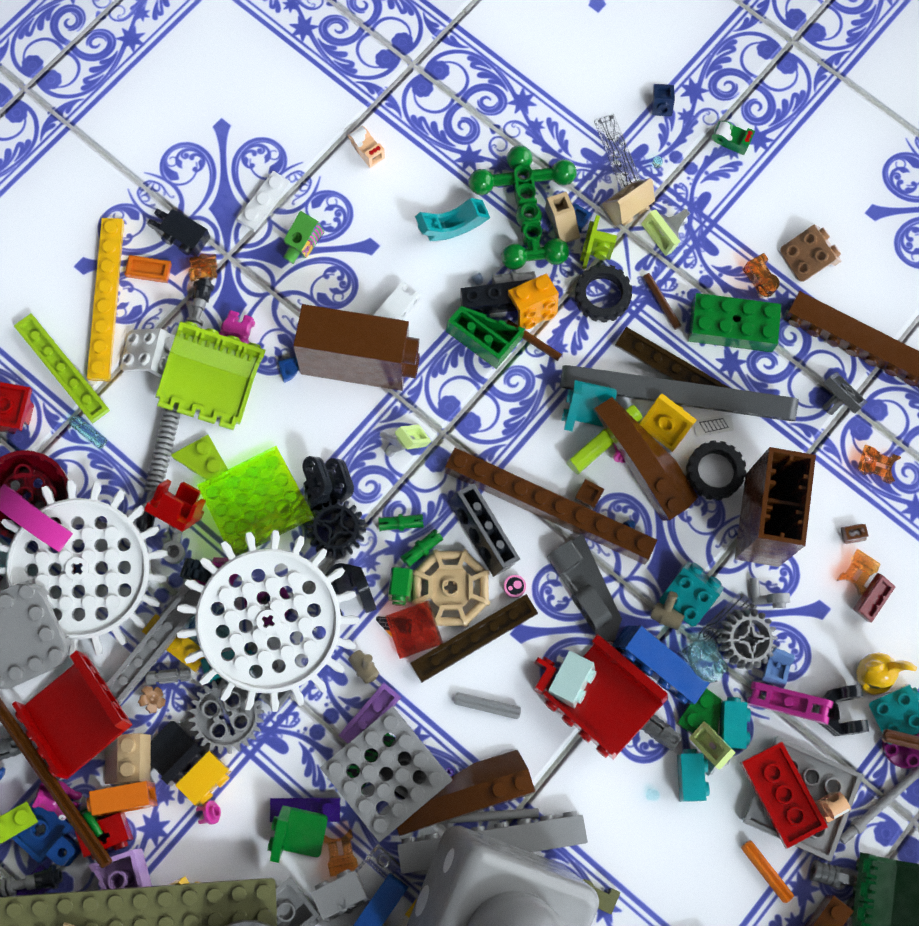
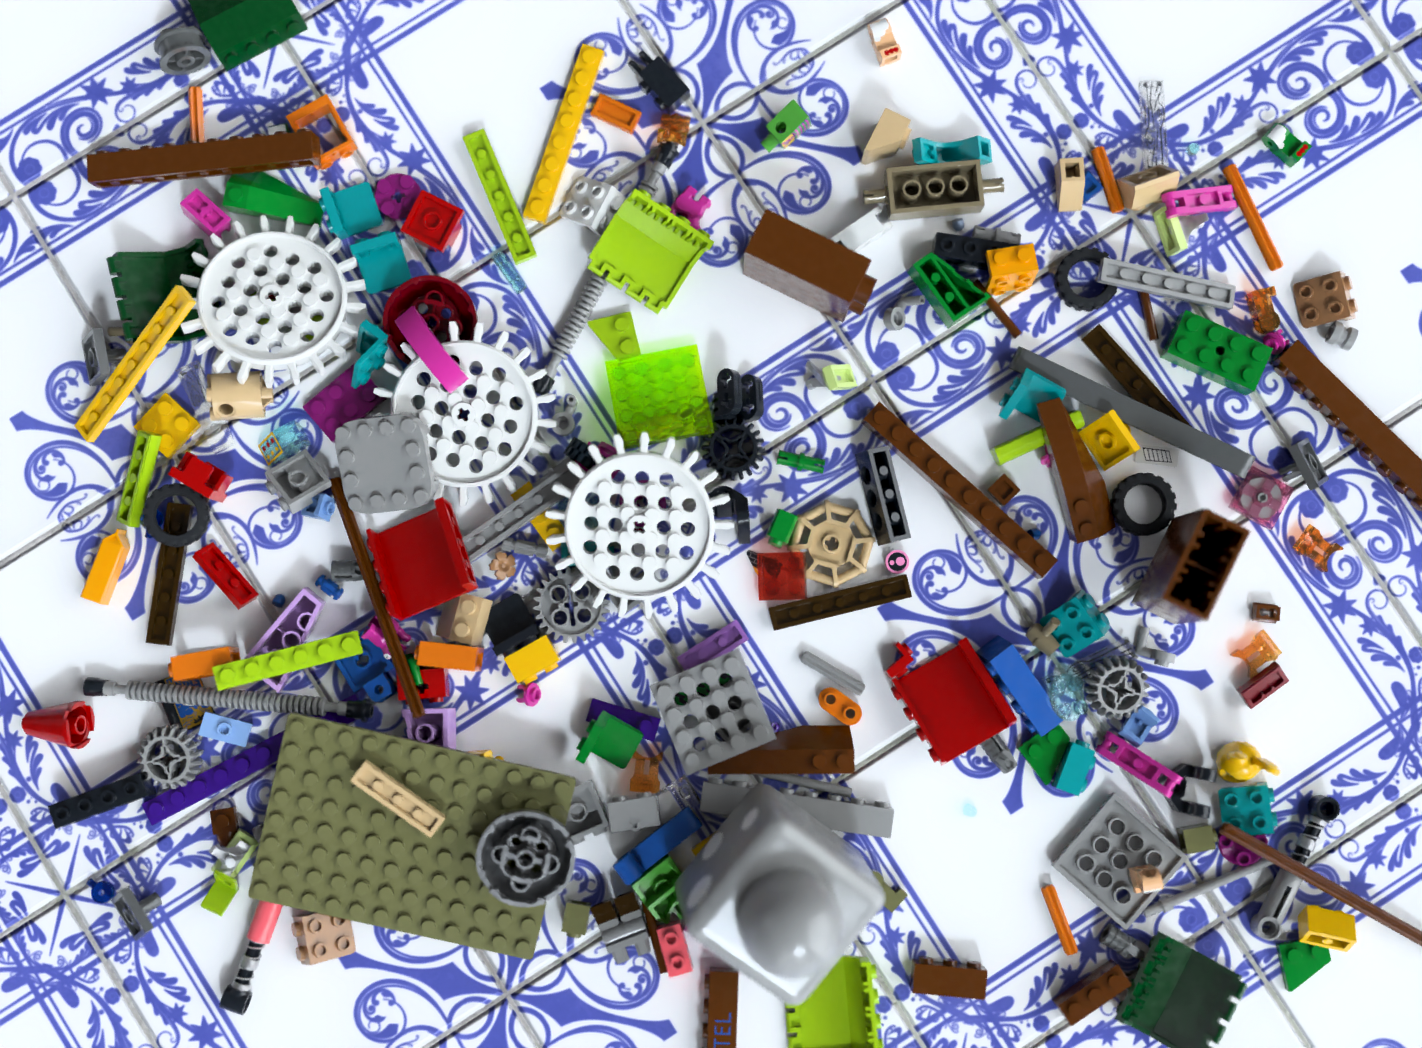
camera: 25 degrees right, 10 degrees up
(179, 509) = (579, 381): red panel -> none
(263, 201) = (757, 73): white plate -> none
(289, 368) = (732, 264): blue tile -> none
(364, 666) = (721, 597): dark tan piece -> none
(392, 222) = (887, 137): none -> tan slope
(421, 548) = (814, 494): green pin -> none
(446, 255) = (933, 190): none -> dark tan brick
(446, 372) = (895, 318): none -> light grey plate
(503, 734) = (840, 706): none -> orange plate
(519, 159) = (1044, 105): green piece -> none
(572, 679) = (926, 674): light aqua brick -> none
(588, 589) = (971, 588): dark grey panel -> none
(593, 206) = (1107, 179): none -> orange axle
(597, 243) = (1098, 224): lime bracket -> none
(663, 100) = (1222, 80): dark blue bracket -> none
(672, 276) = (1166, 284): none -> light grey plate
(676, 201) = (1199, 201): none -> dark pink plate
(691, 776) = (1015, 805): teal brick -> none
(712, 747) = (1044, 784): yellowish green piece -> none
(727, 203) = (1253, 217): none -> orange axle
(782, 298) = (1275, 341): none -> dark pink plate
(784, 795) = (1101, 852): red plate -> none
(815, 434) = (1261, 498): none -> clear pink piece
(835, 278) = (1341, 336): none -> light grey wheel
(865, 754) = (1197, 838): none -> olive brick

